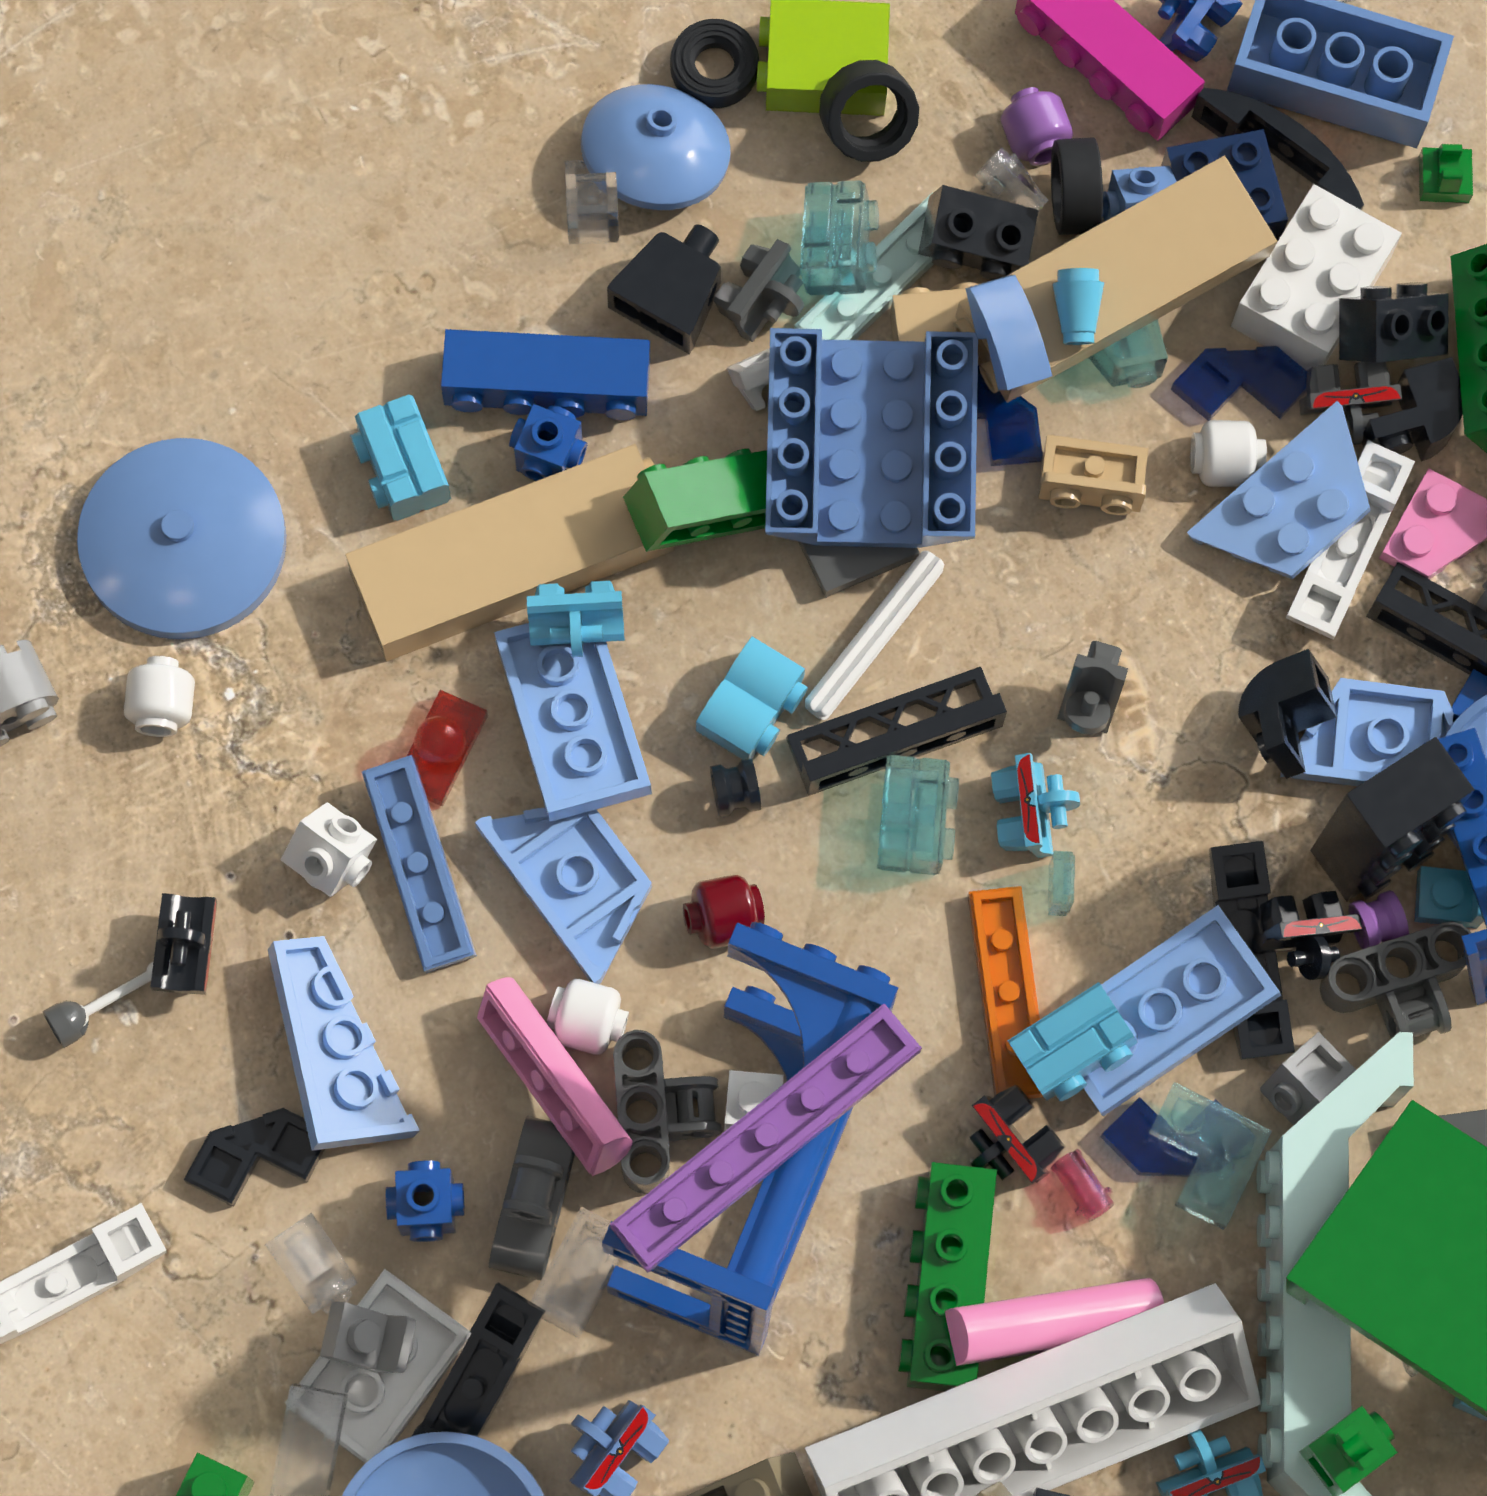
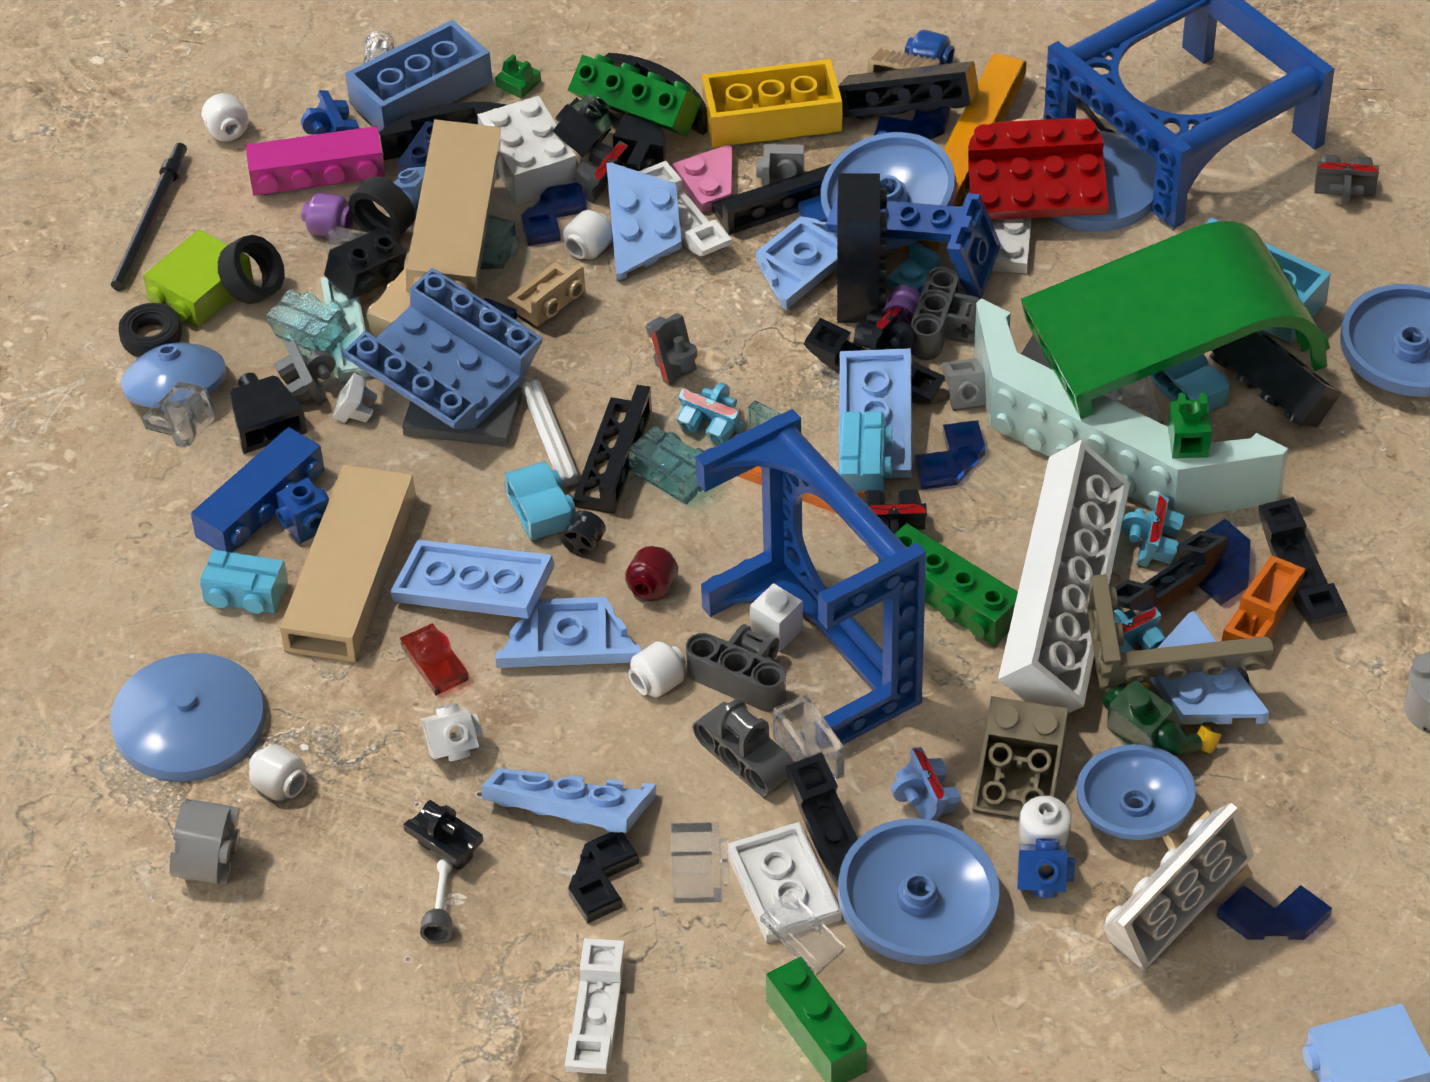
camera: 50 degrees left, 25 degrees down
(368, 1338) = (769, 859): light grey bracket -> none
(419, 864) = (496, 700): medium blue tile -> none
(429, 1221) = (703, 795): blue brick -> none
(552, 1076) = (680, 693): bright pink brick -> none
(576, 616) = (422, 538): medium azure hips -> none
(699, 499) = (407, 447): green brick -> none
(765, 1138) = (829, 502): medium lavender tile -> none
(1011, 331) = (433, 246): medium blue slope -> none
(1044, 1320) = (1008, 548): bright pink brick -> none
(1078, 304) = (457, 215): medium azure cone -> none
(1083, 1186) = (946, 503): clear pink pin -> none
(1224, 1147) = (971, 429): clear light blue plate -> none
(1283, 702) = (752, 277): black brick -> none

